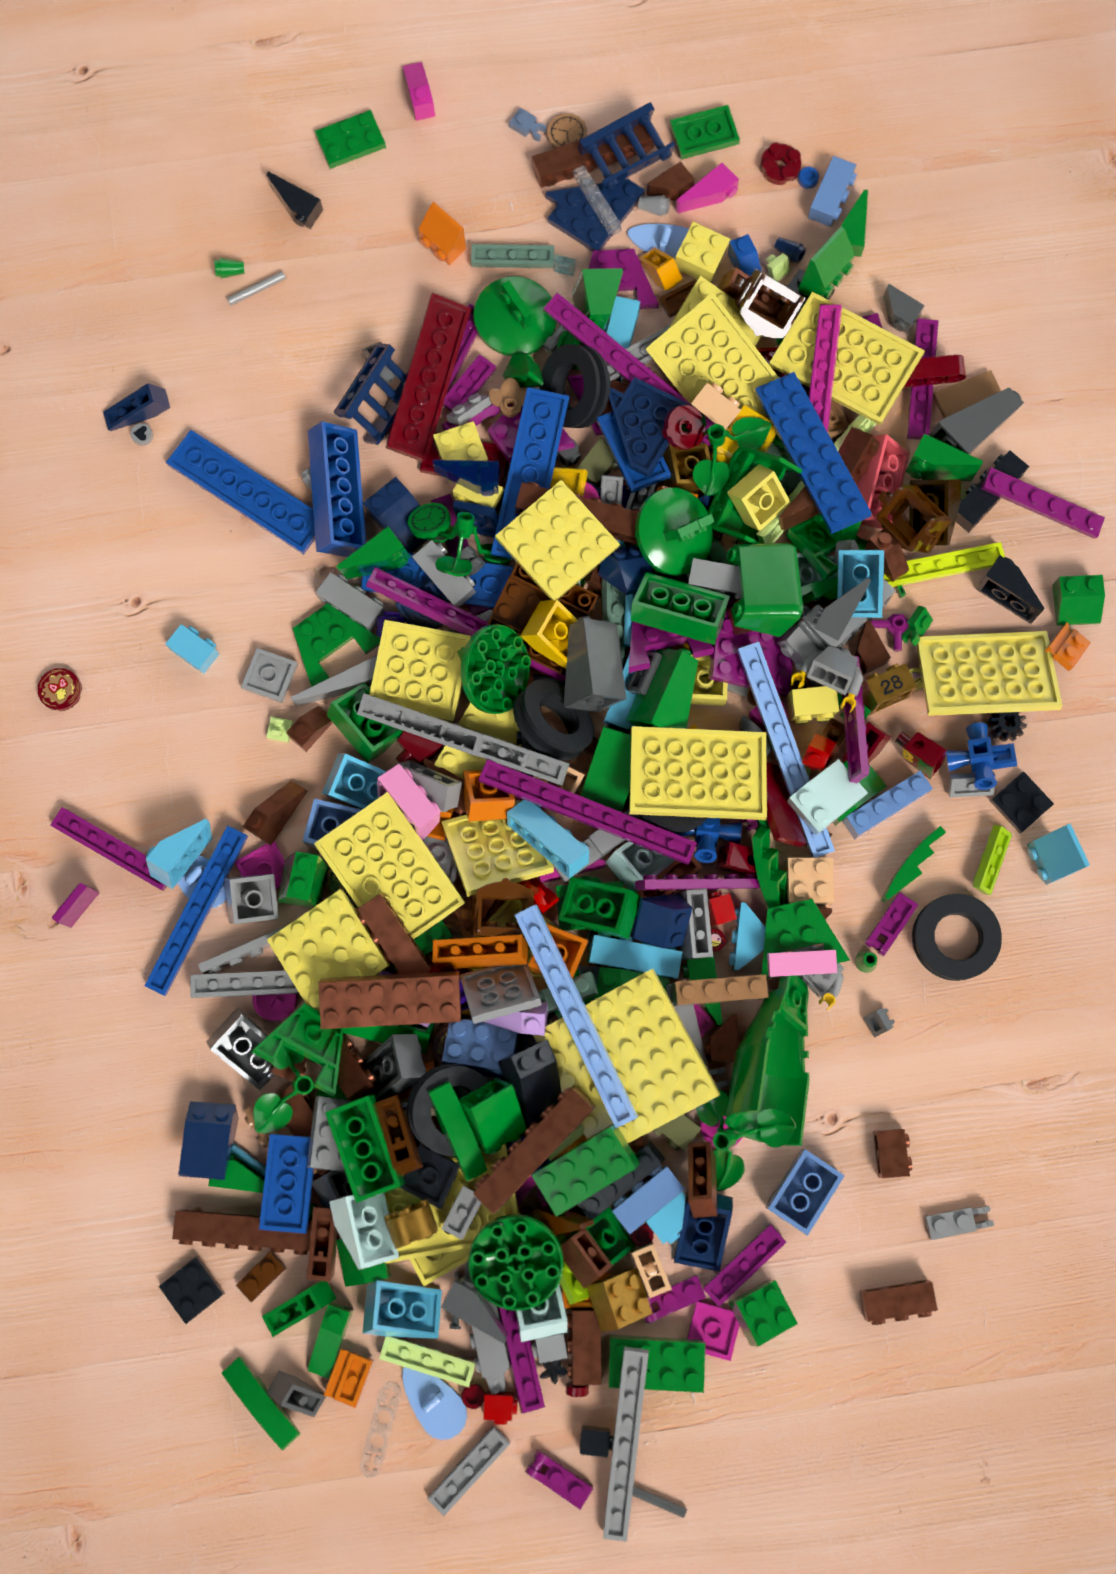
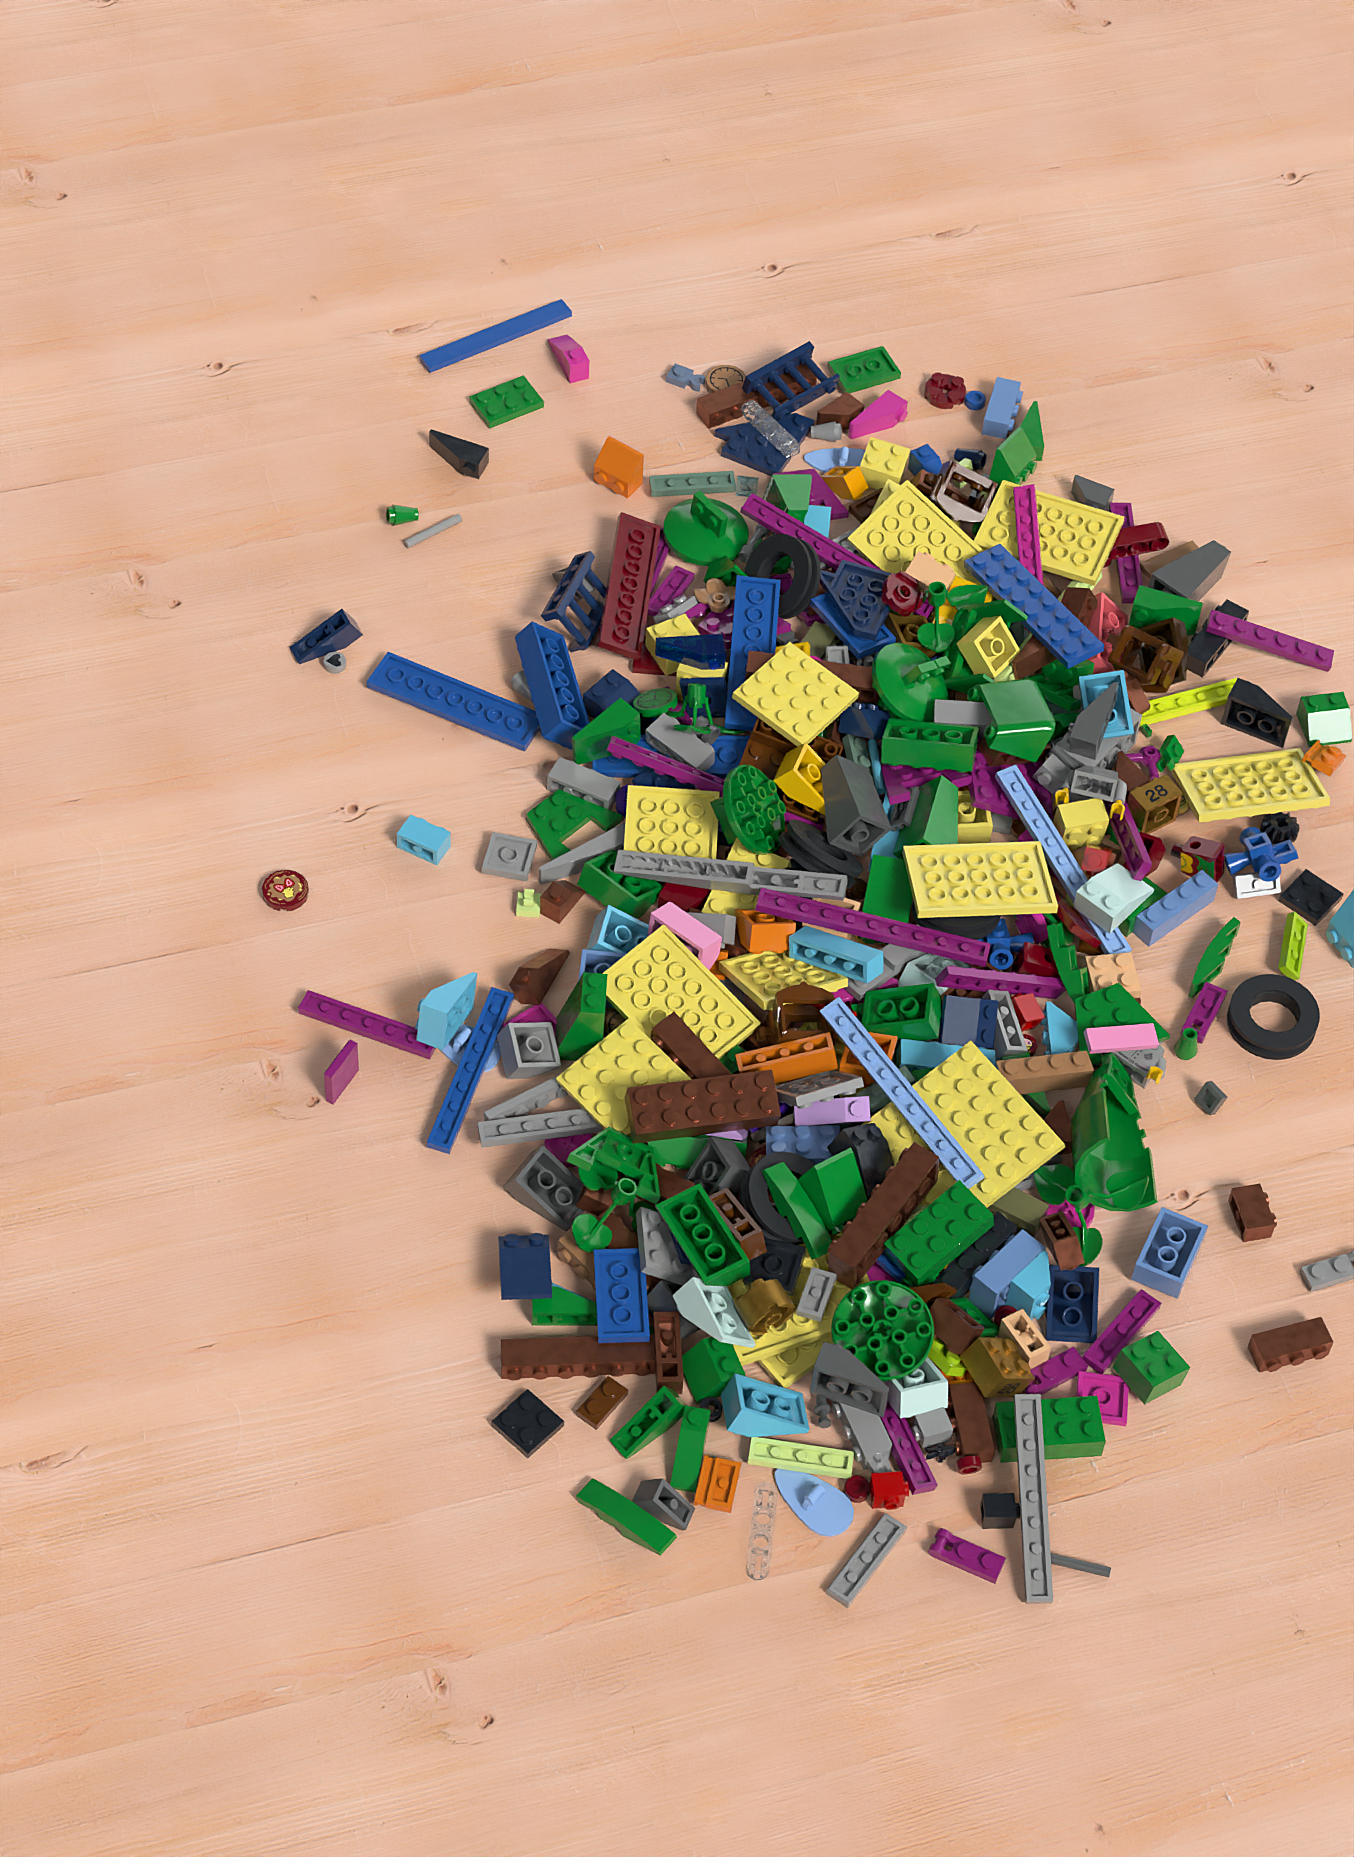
camera: 15 degrees left, 25 degrees down
(352, 57) = (495, 335): none -> blue tile
(360, 1303) = (716, 1415): none -> black bush

